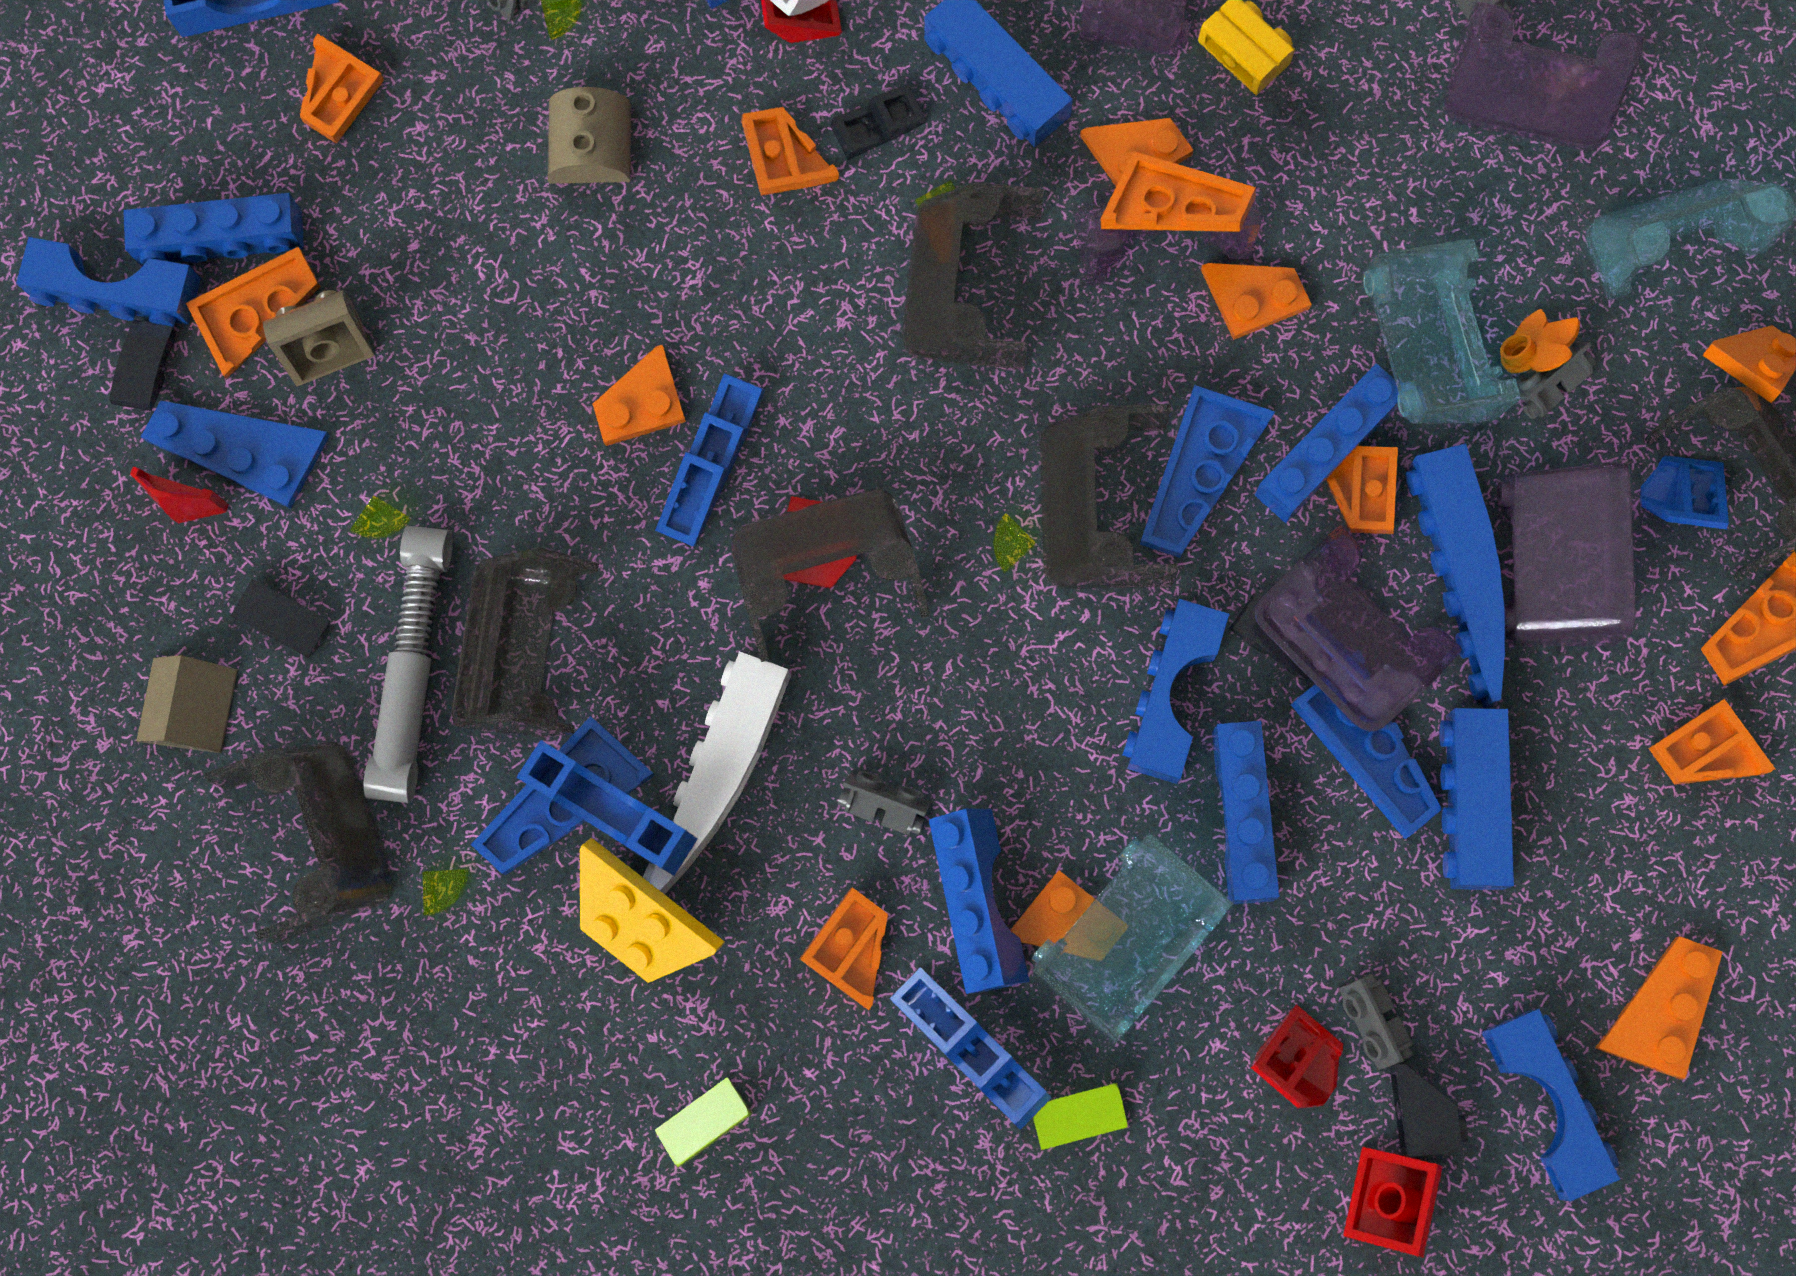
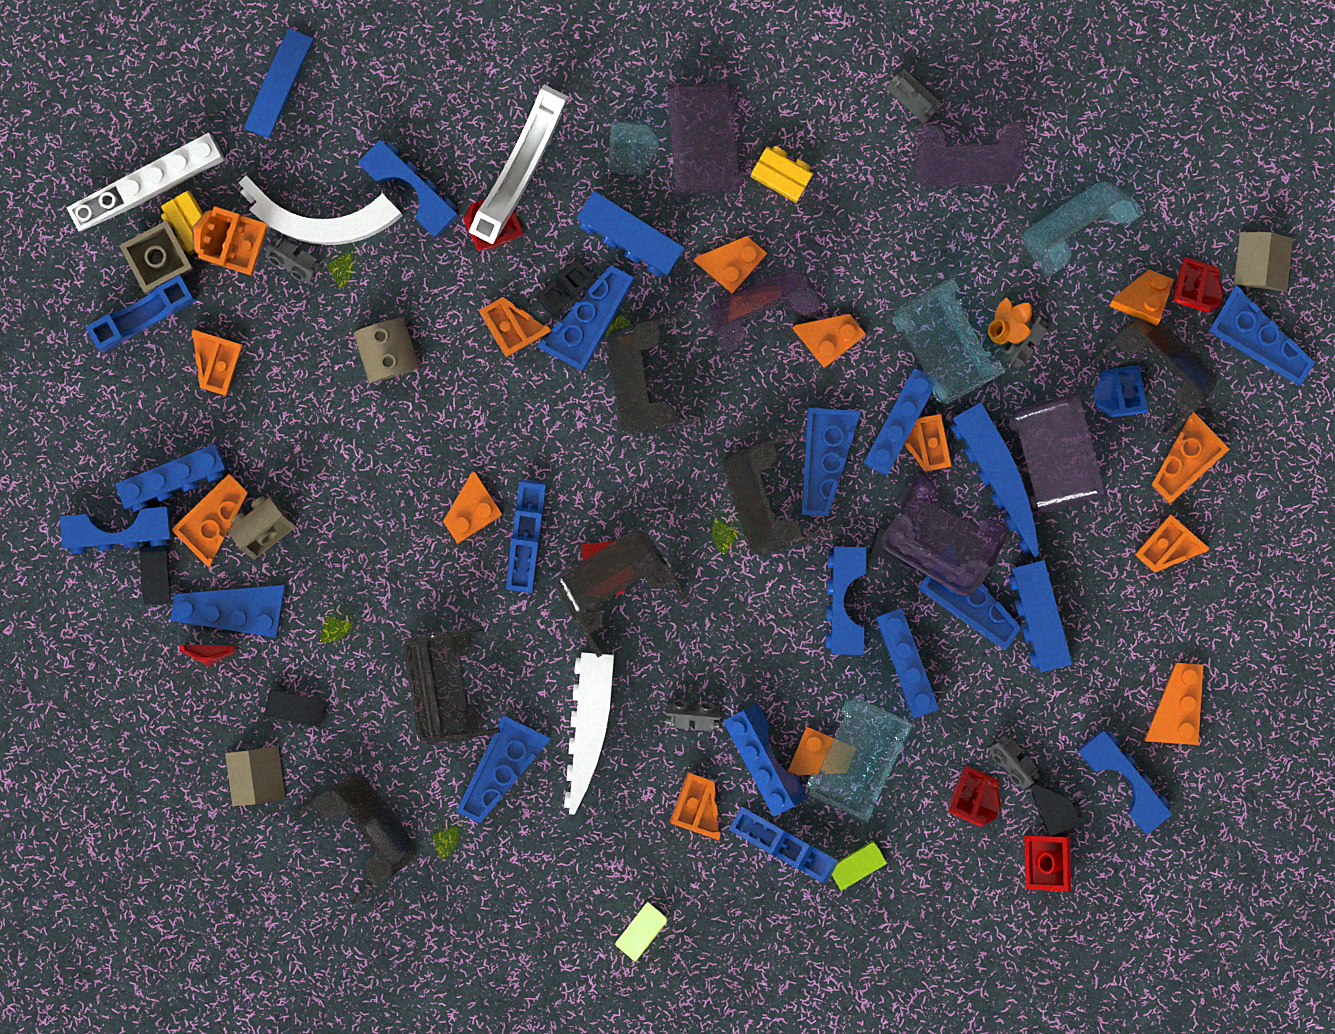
camera: 20 degrees left, 10 degrees up
(393, 767) = (384, 719): light grey piece -> none
(607, 808) = (534, 770): blue arch -> none
(636, 918) = (569, 827): yellow wing -> none
(889, 185) = (582, 330): none -> blue wing
(1175, 197) = (766, 310): orange wing -> none

